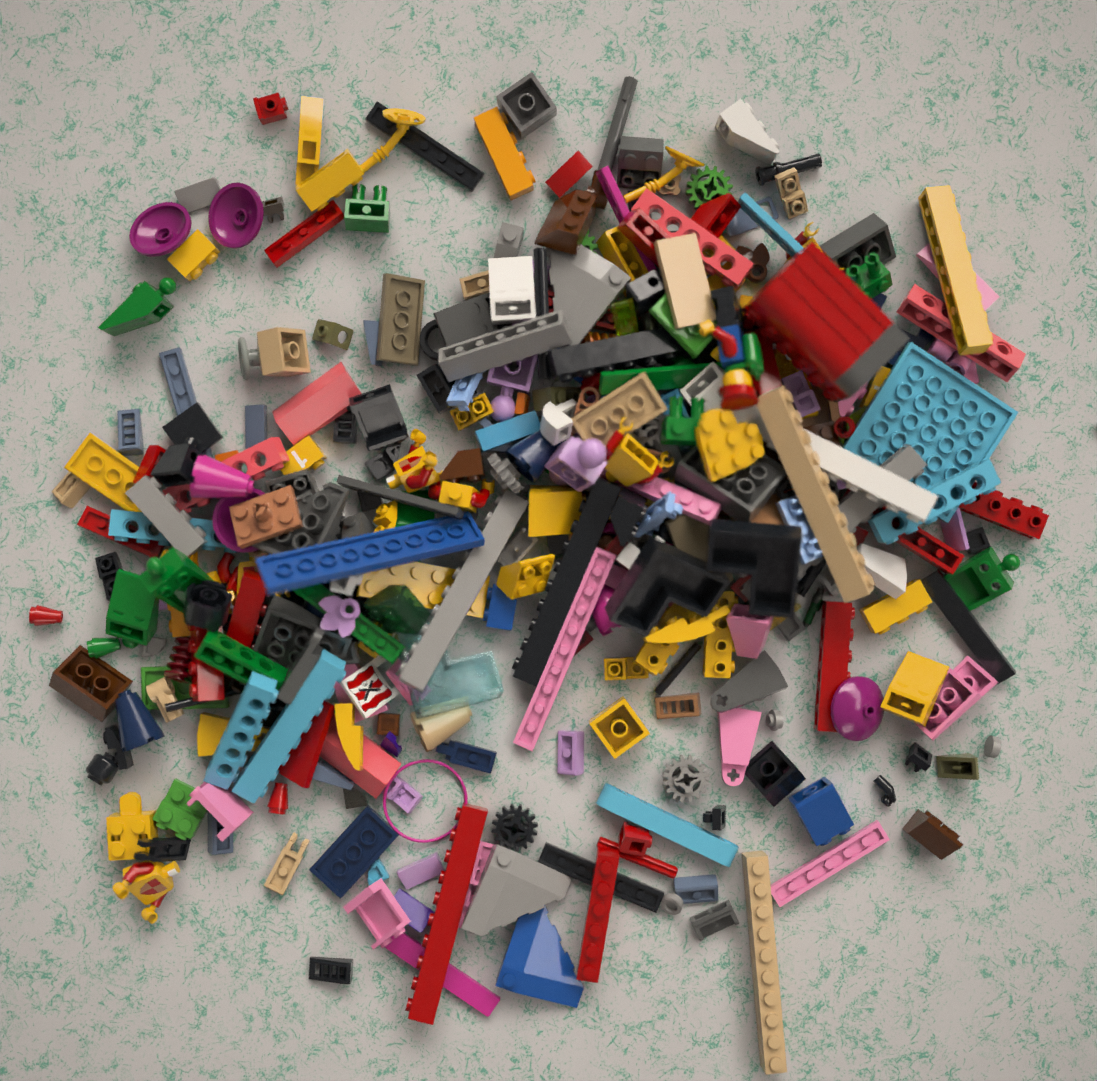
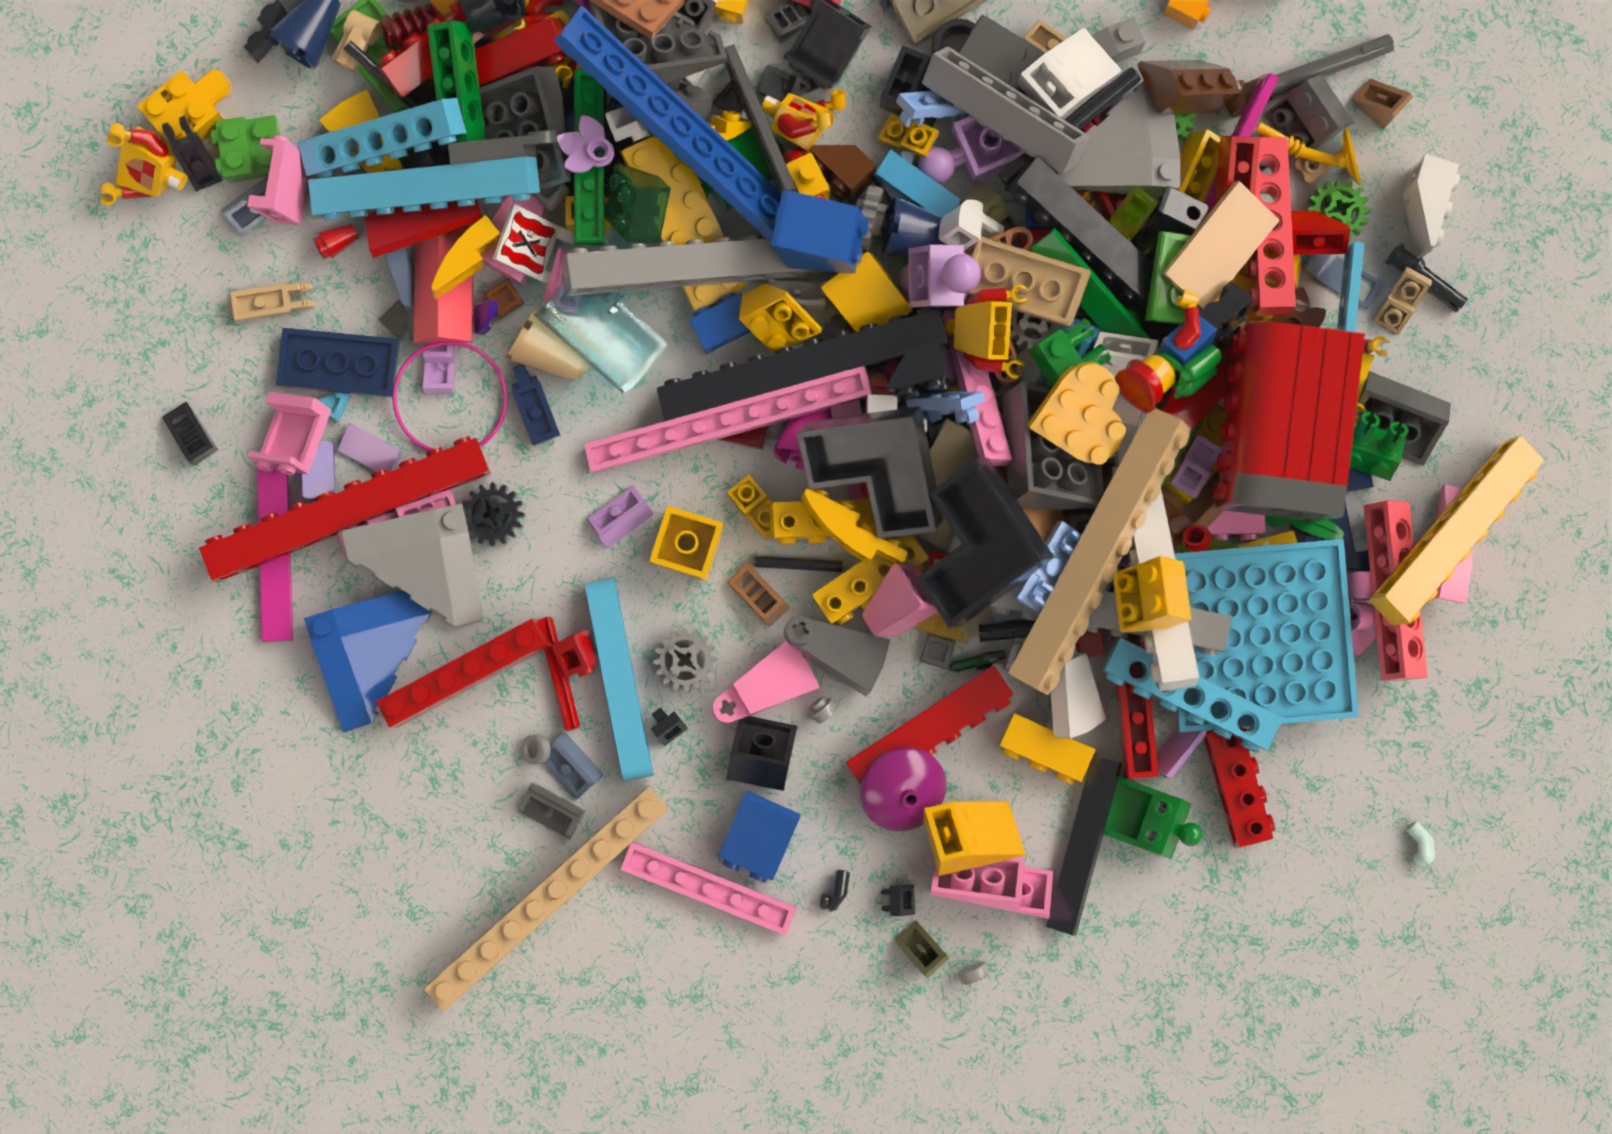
camera: 55 degrees right, 5 degrees down
(102, 768) = (230, 30): black head -> none
(497, 515) = (818, 233): none -> blue slope
(522, 404) = (958, 182): orange tile -> none
(569, 174) = (1239, 51): red slope -> none
(582, 870) = (514, 681): black tile -> none
(663, 112) = (1381, 101): none -> medium nougat slope
(868, 486) = (1152, 595): none -> yellow slope
(929, 832) = (825, 977): reddish brown slope -> none
(977, 540) = (1185, 784): black tile -> none

